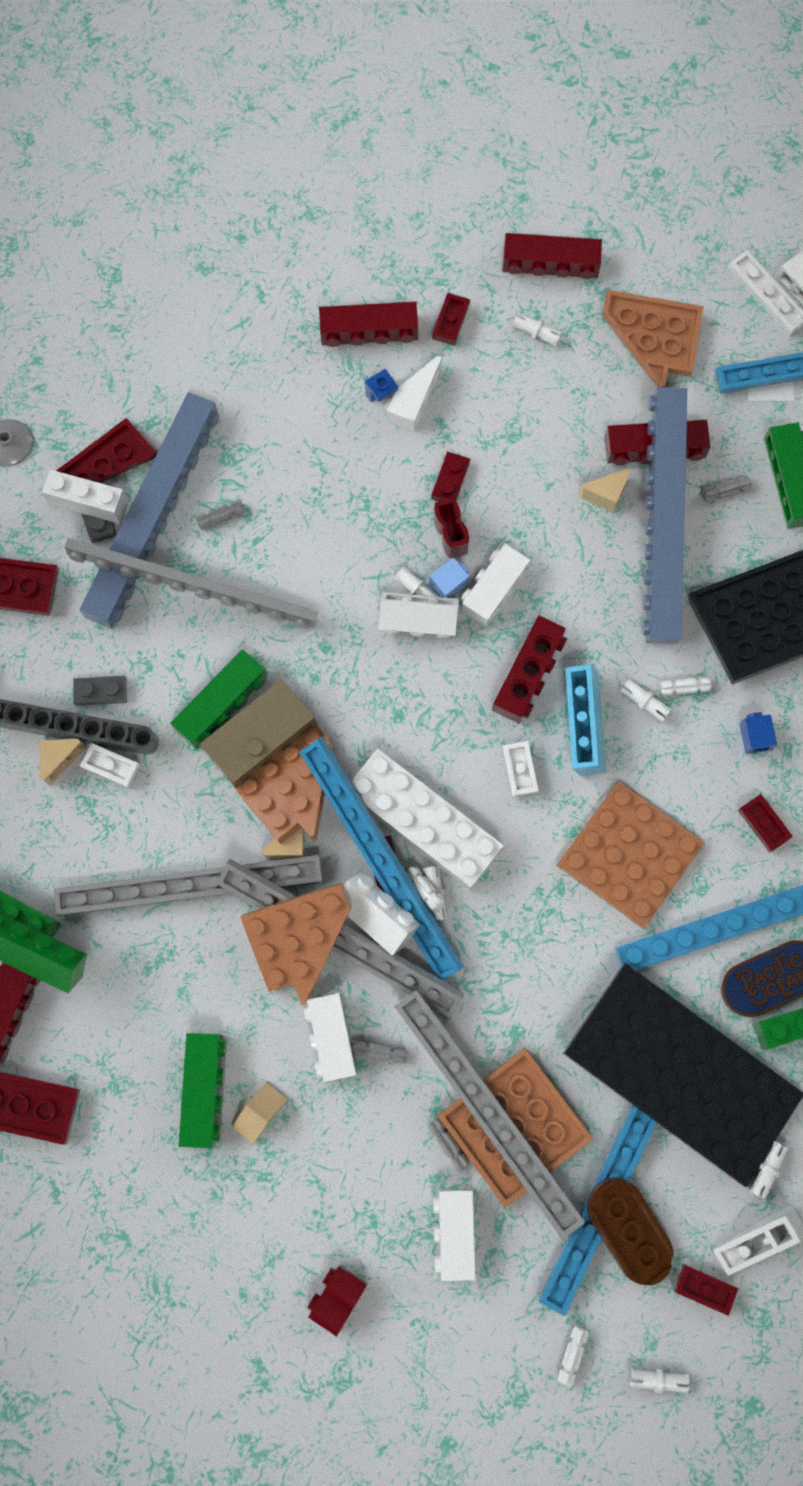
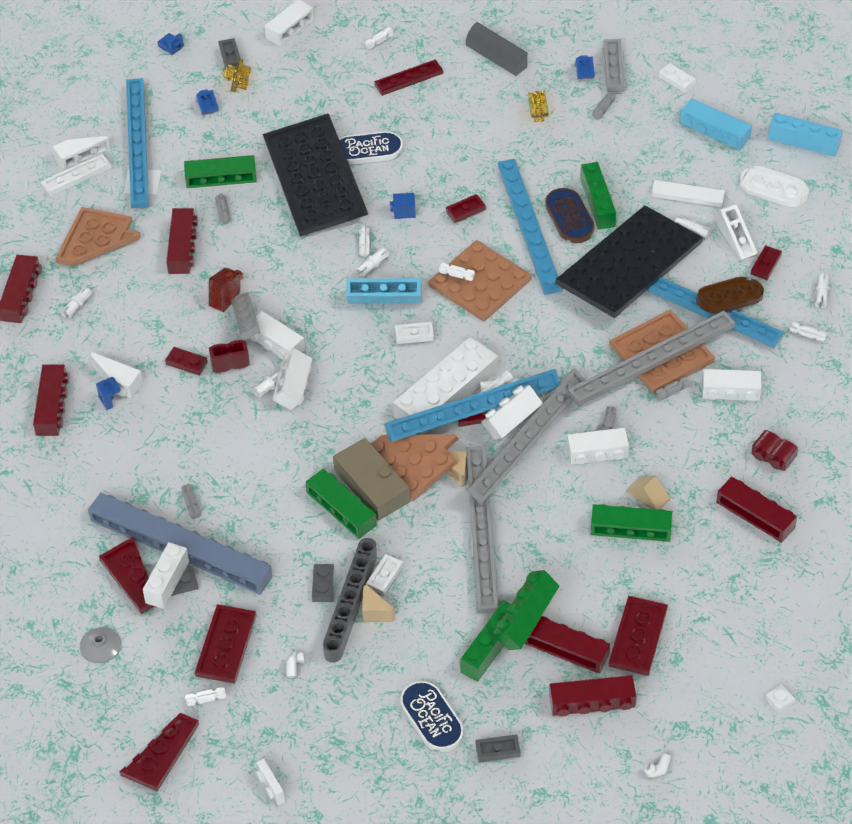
camera: 85 degrees left, 25 degrees down
(183, 581) = (247, 513): light grey plate -> none
(230, 1272) = (756, 509): none -> dark red brick
(297, 937) = (526, 455): nougat wing -> none
(449, 579) = (267, 362): light blue brick -> none
(451, 319) = (57, 351): dark red plate -> none
(519, 539) = (245, 315): none -> light grey plate
(544, 633) = (342, 322): dark red brick -> none
(573, 508) = (223, 288): none -> clear red torso
(605, 490) = (212, 264): tan slope -> none
(630, 818) = (457, 271): none -> white axle
(666, 515) = (241, 233): sand blue brick -> none

